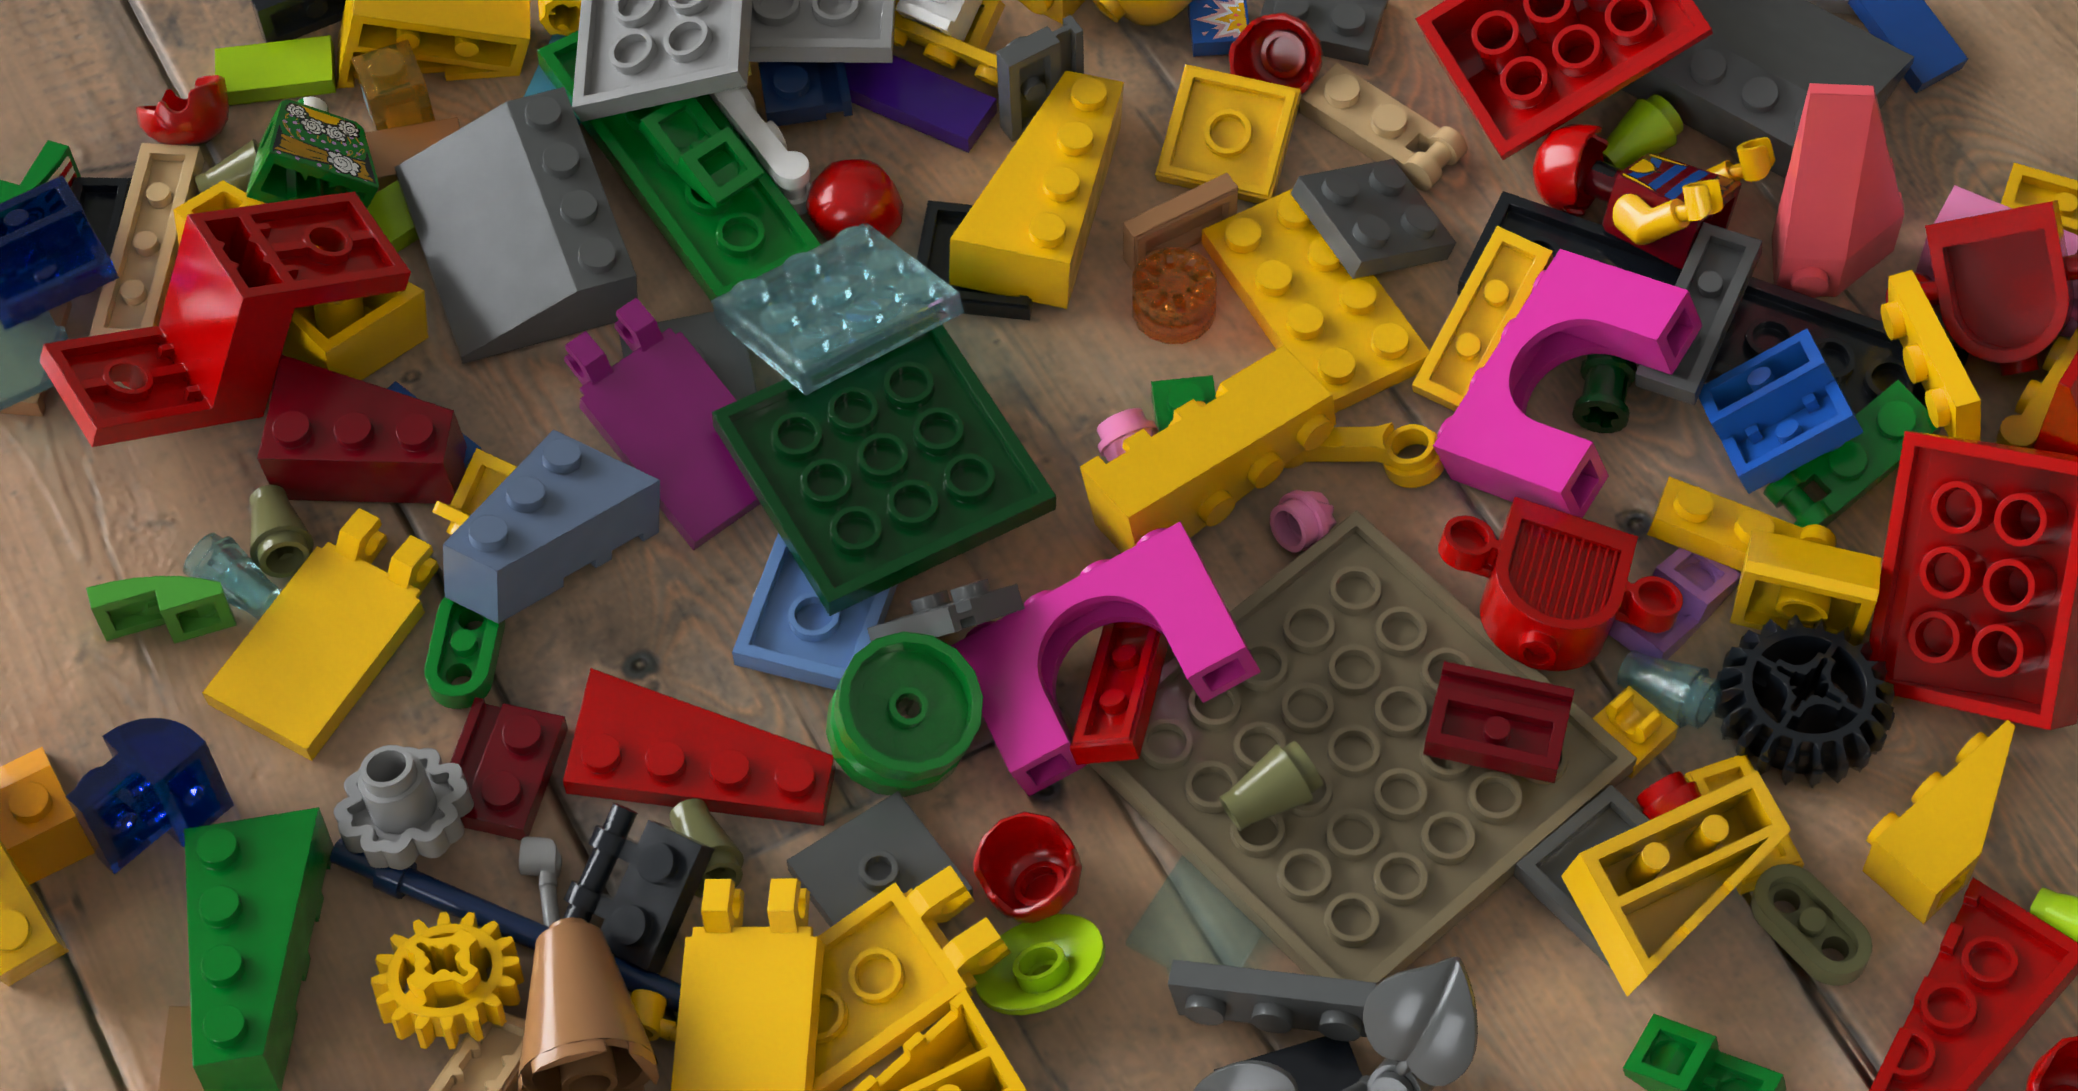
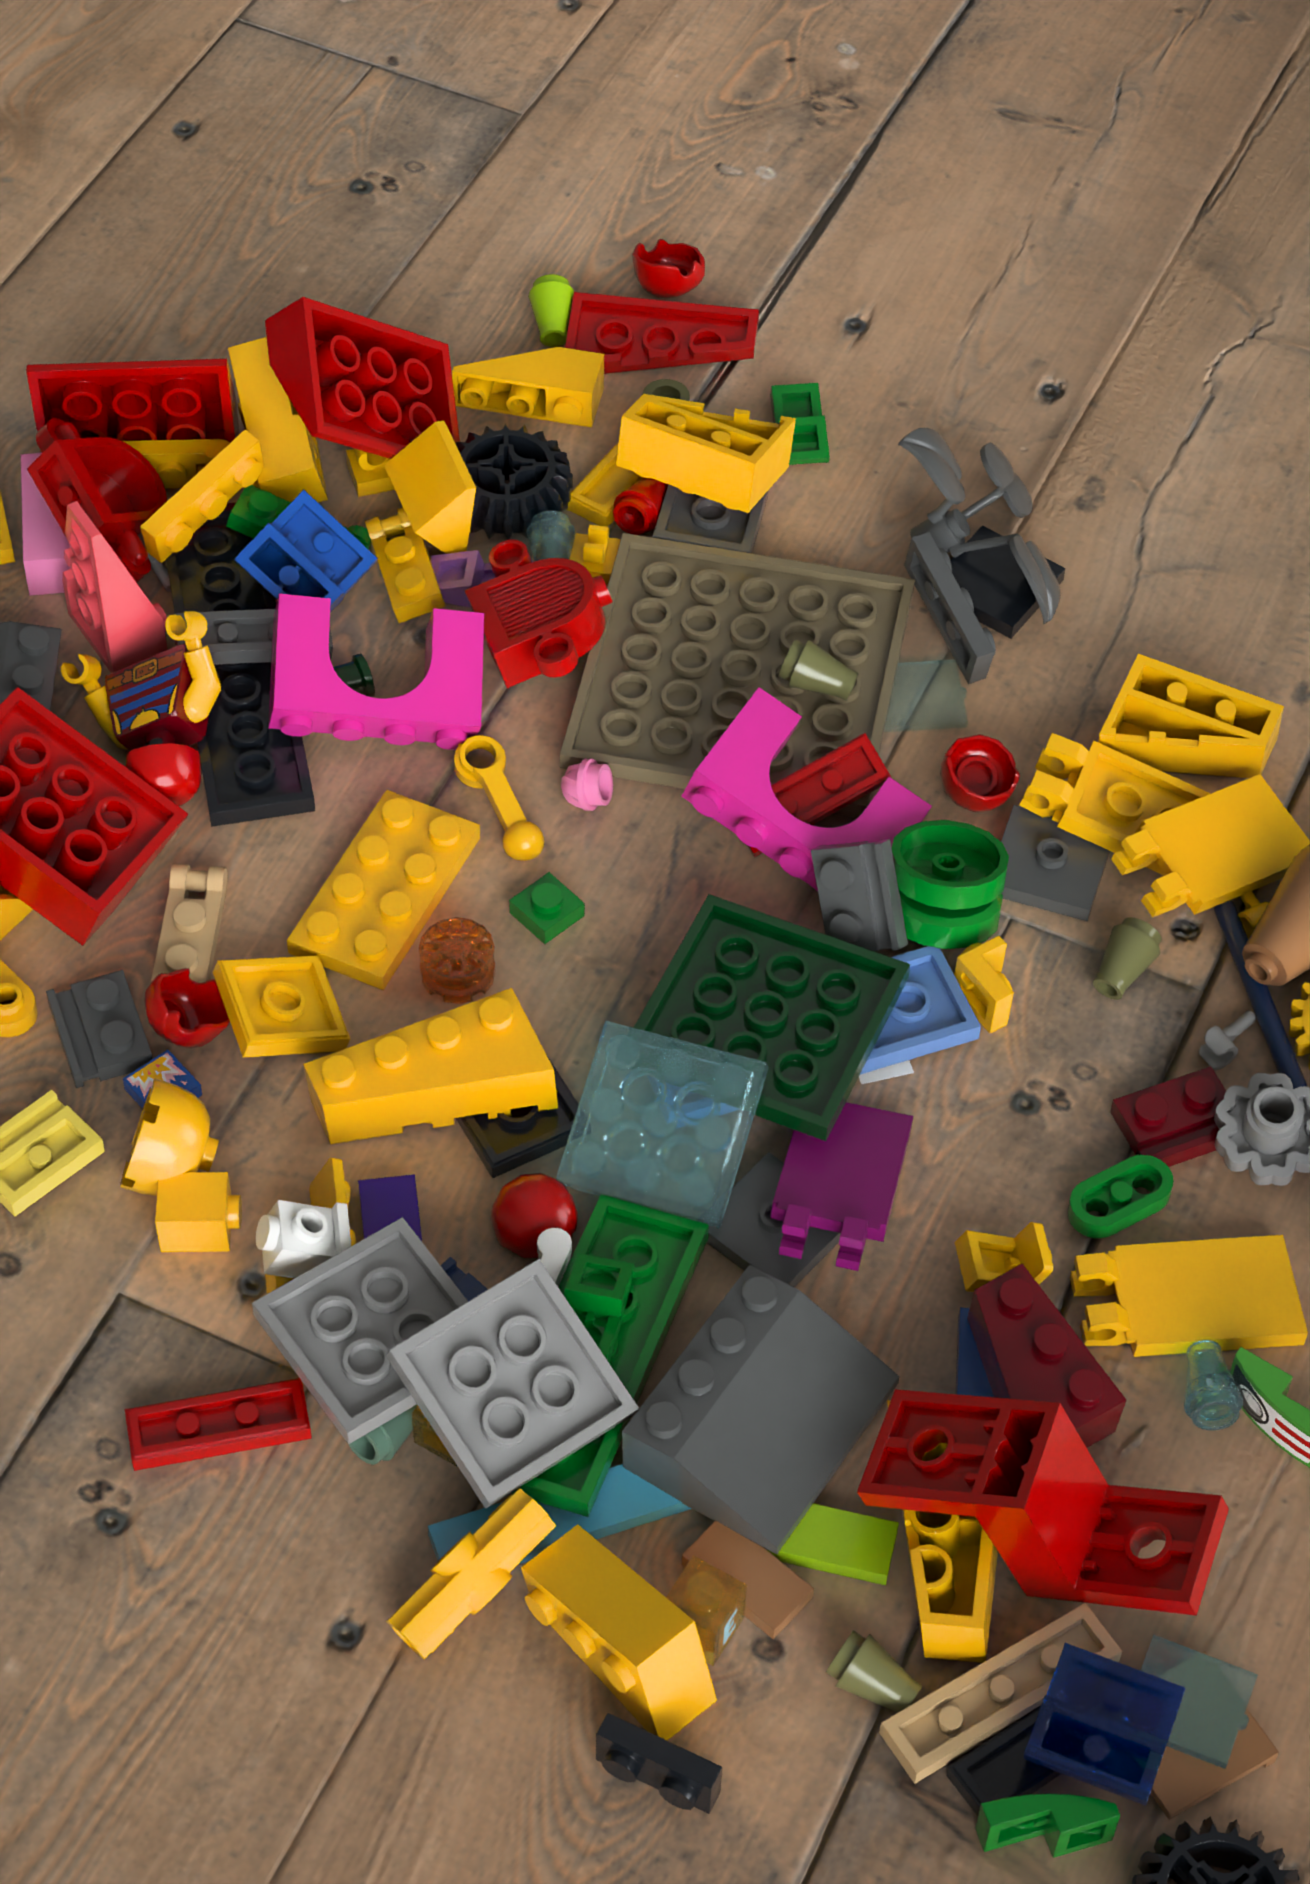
camera: 130 degrees left, 5 degrees down
(190, 119) = (856, 1762): red hair -> none
(277, 69) = (748, 1751): lime tile -> none
(277, 534) = (1151, 1382): olive cone -> none
(311, 155) = (839, 1581): green torso -> none
(545, 523) = (1001, 1184): sand blue wedge -> none
(652, 894) = (1192, 950): black plate -> none
(666, 751) = (1078, 1034): red wing -> none
(778, 689) = (984, 985): none -> yellow bracket
(1032, 68) = (336, 1127): dark grey plate -> none
(1045, 966) = (1031, 708): lime dish -> none
(1118, 428) = (606, 915): bright pink plate -> none
(1179, 219) = (388, 986): medium nougat tile -> none
(1211, 452) = (599, 836): yellow wedge -> none
(1373, 218) = (293, 877): dark grey plate -> none
(1475, 324) = (345, 758): yellow plate -> none
(1498, 722) = (668, 590): dark red plate -> none

